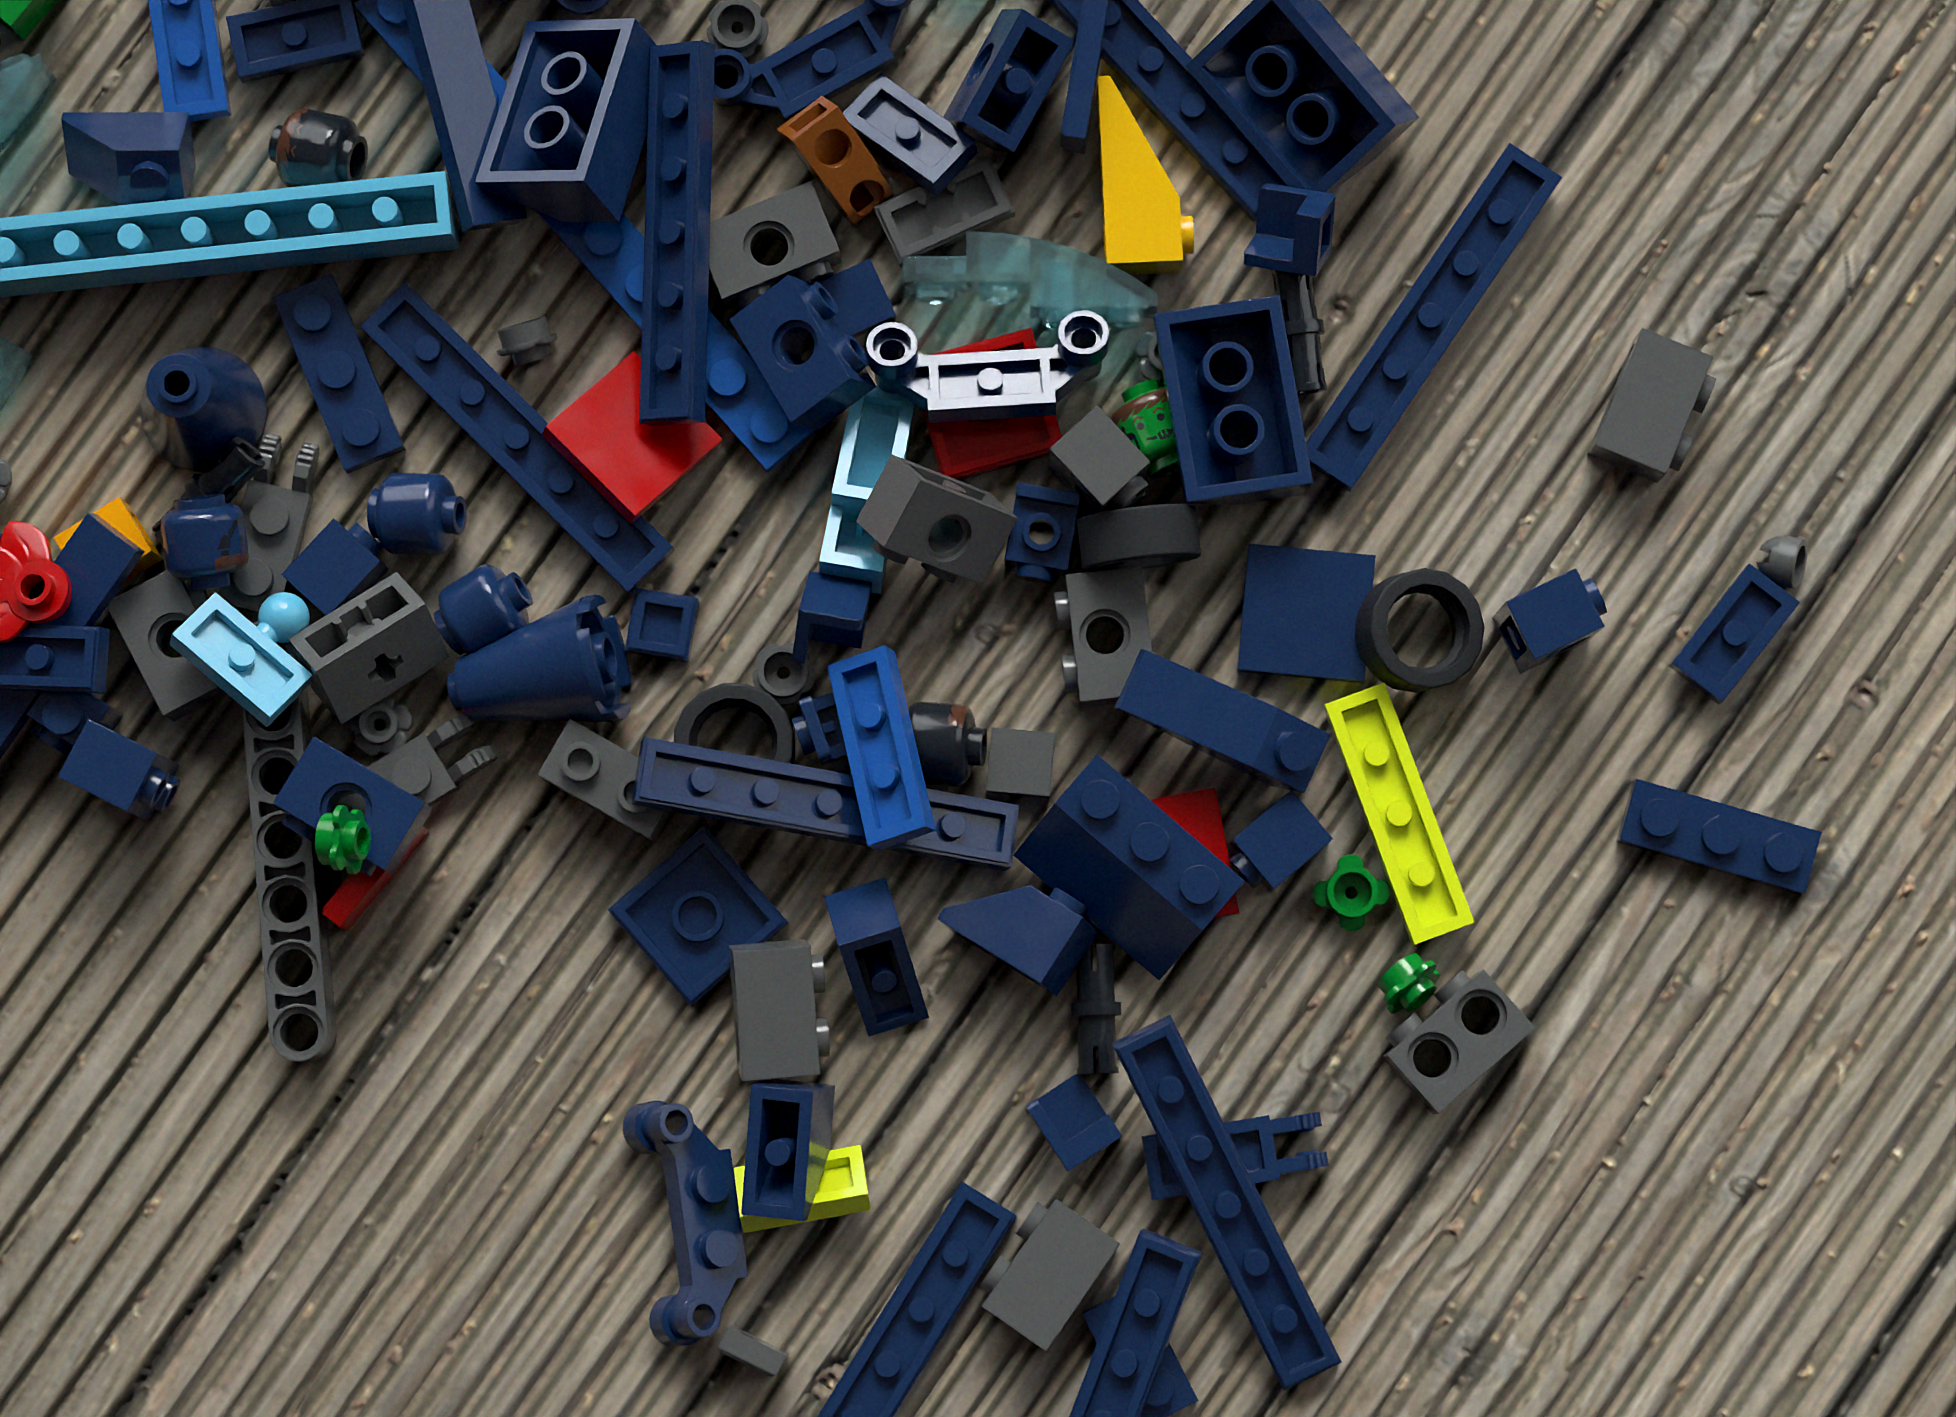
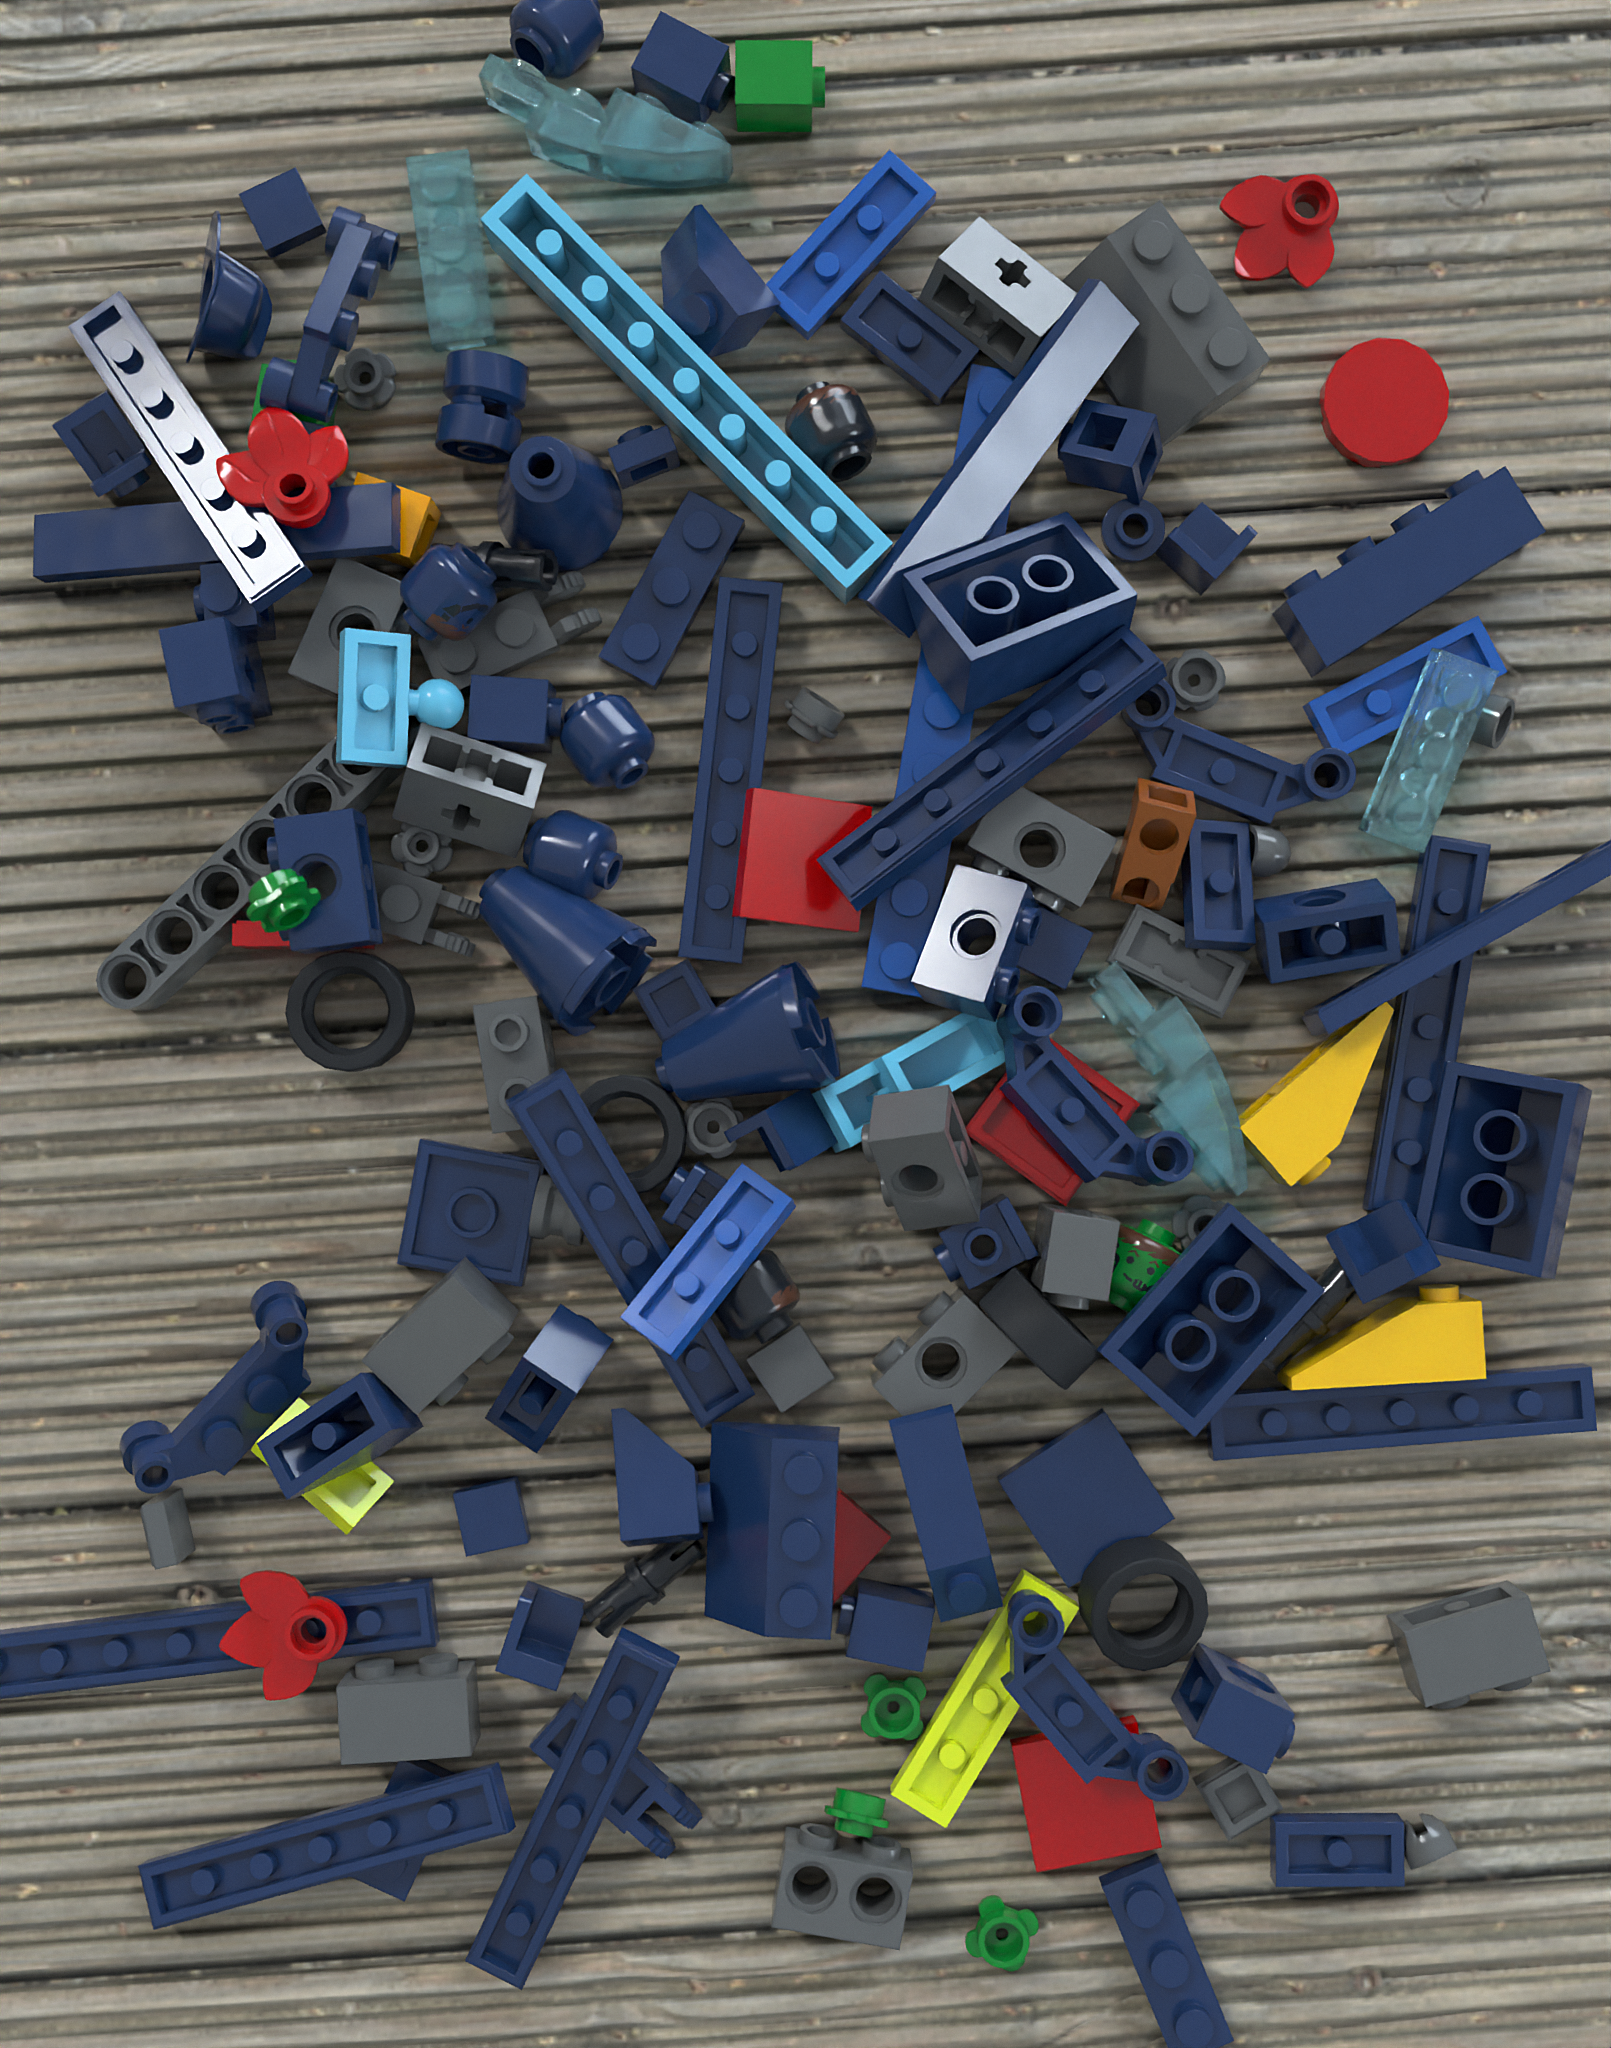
camera: 50 degrees right, 5 degrees up
(72, 396) = (483, 397): none -> dark blue wheel
(217, 310) = (643, 455): none -> dark blue plate
(415, 881) = (302, 1003): none -> black tyre
(742, 586) = (754, 1043): none -> dark blue cone
(752, 846) = (552, 1215): none -> dark grey wheel
(903, 1329) = (276, 1633): none -> red plate
(915, 75) = (1268, 851): none -> dark grey hinge
(950, 1091) = (491, 1516): none -> dark blue tile
(1381, 263) = (1400, 1343): none -> yellow slope
(1455, 746) = (1075, 1714): none -> dark blue plate
(1538, 796) = (1079, 1820): none -> red tile
(1615, 952) = (1007, 1951): none -> green plate
(1633, 678) = (1237, 1796): none -> dark grey tile

